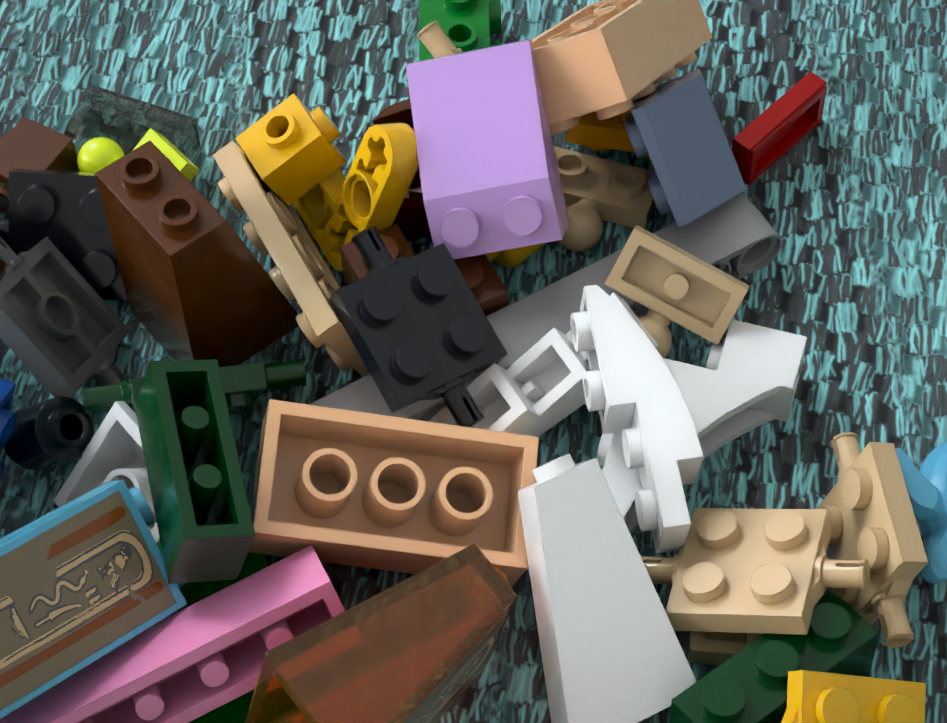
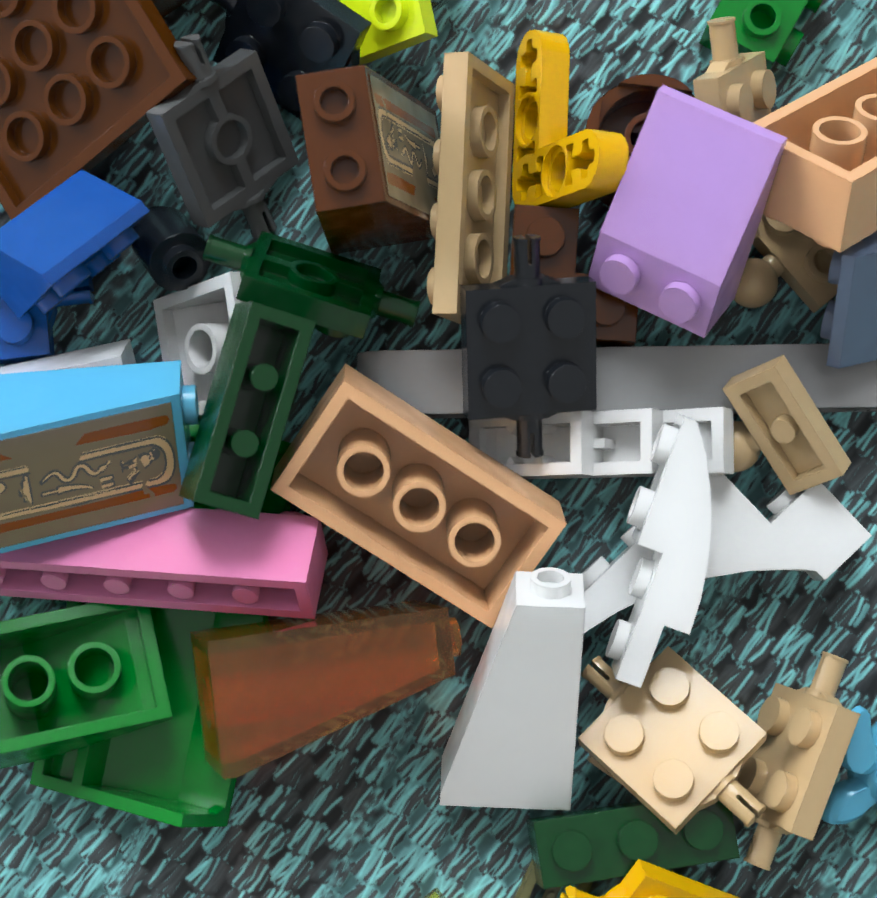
camera: 35 degrees right, 30 degrees up
(292, 148) = (526, 75): yellow brick -> none

